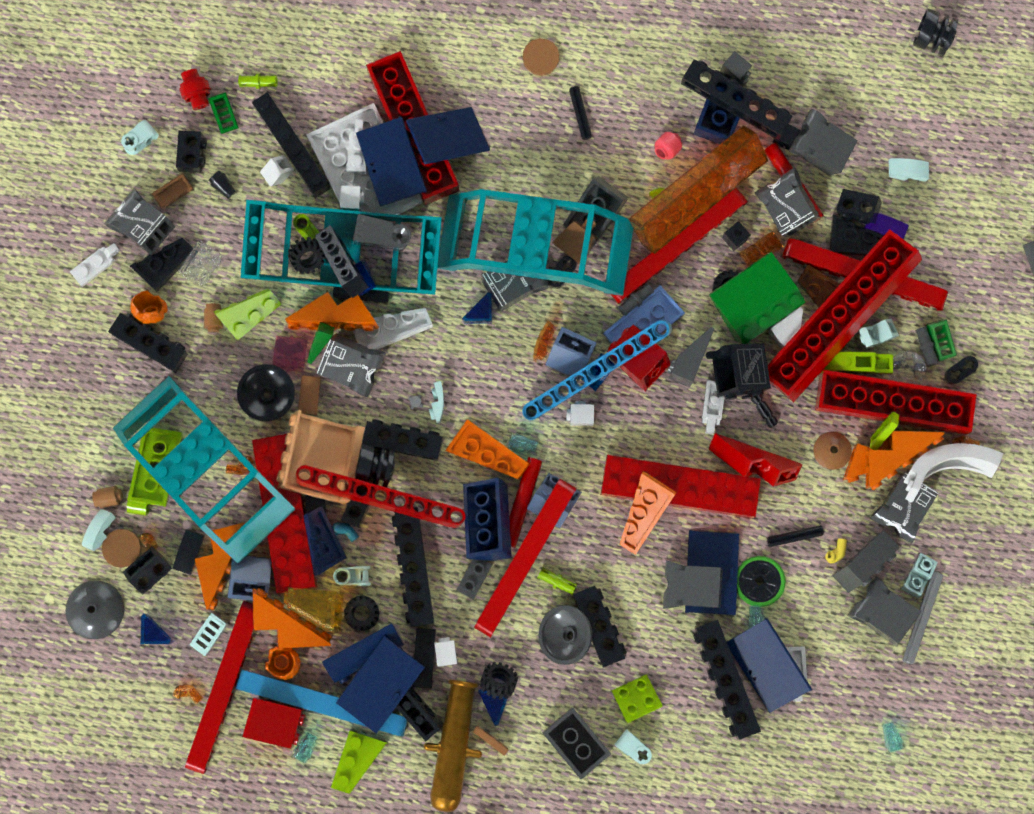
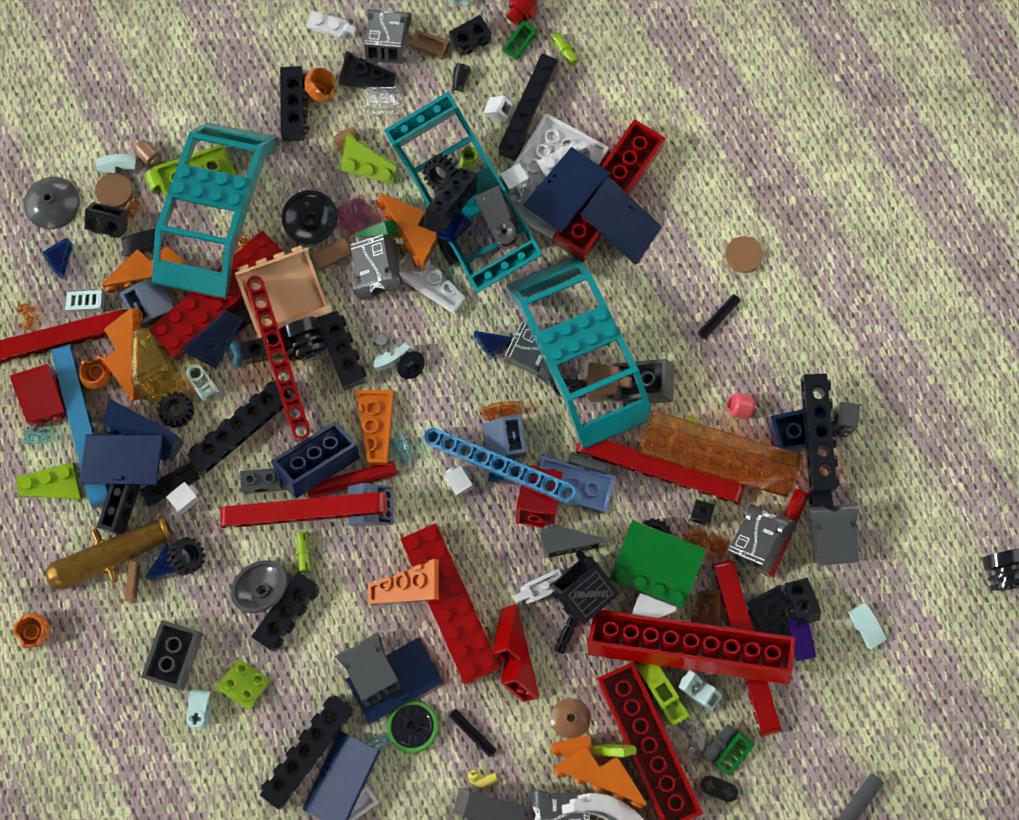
camera: 60 degrees right, 5 degrees down
(458, 394) = (414, 369): none -> black gear

